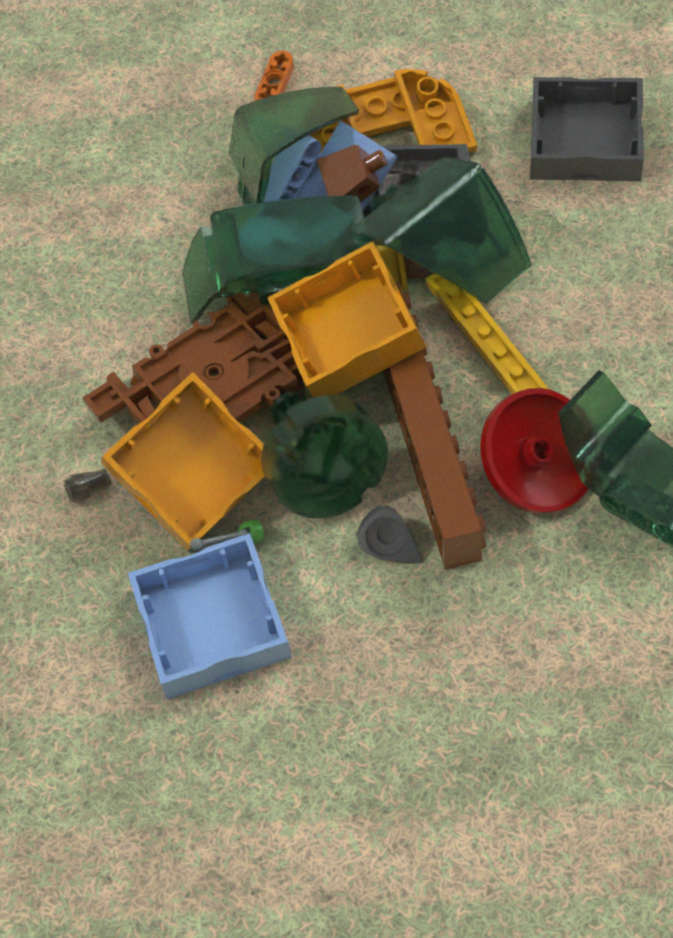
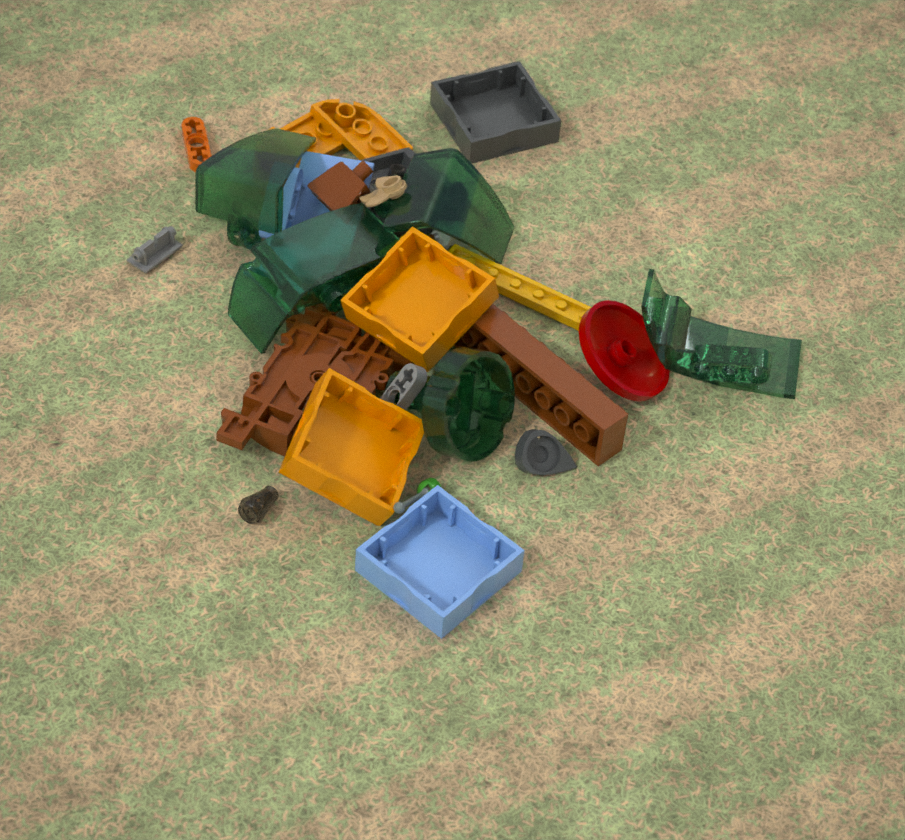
camera: 40 degrees left, 10 degrees down
(155, 186) = (156, 250): none -> light grey hinge
(272, 415) = (407, 383): none -> light grey beam
(384, 190) = (387, 187): none -> tan plate

